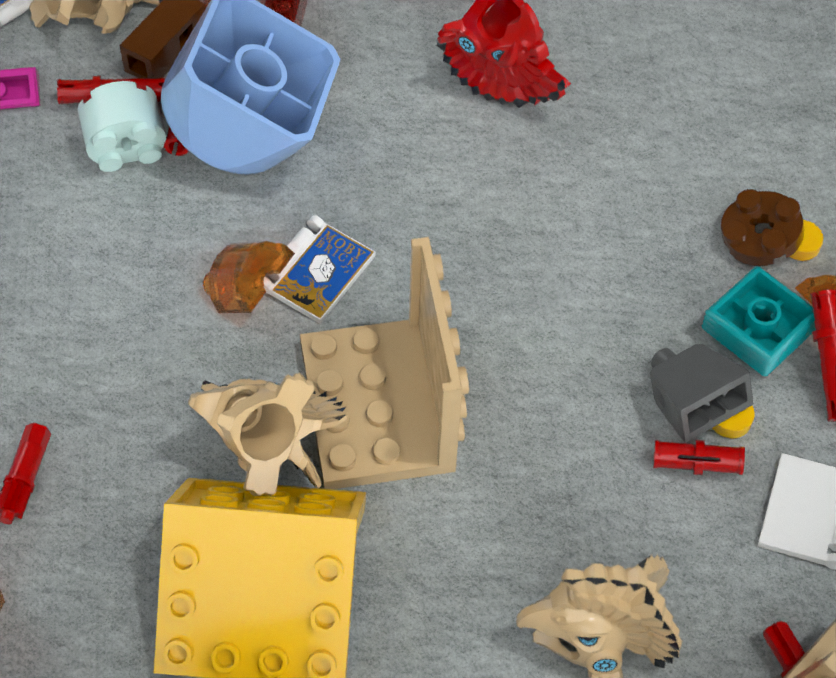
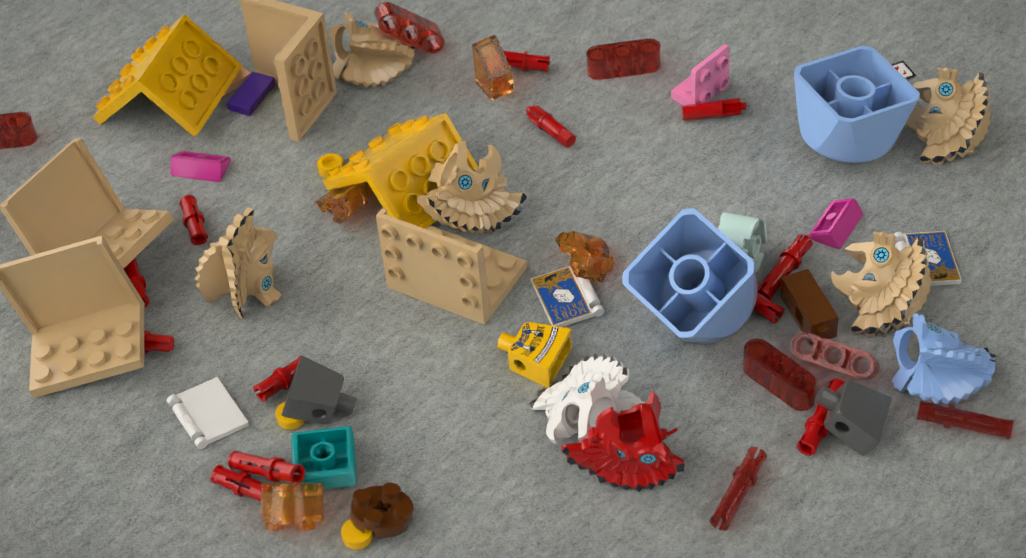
camera: 135 degrees right, 10 degrees down
(374, 613) = (345, 201): none -> clear orange cylinder
(433, 214) = (537, 351): none -> yellow torso
(467, 132) = (583, 395): none -> white piece

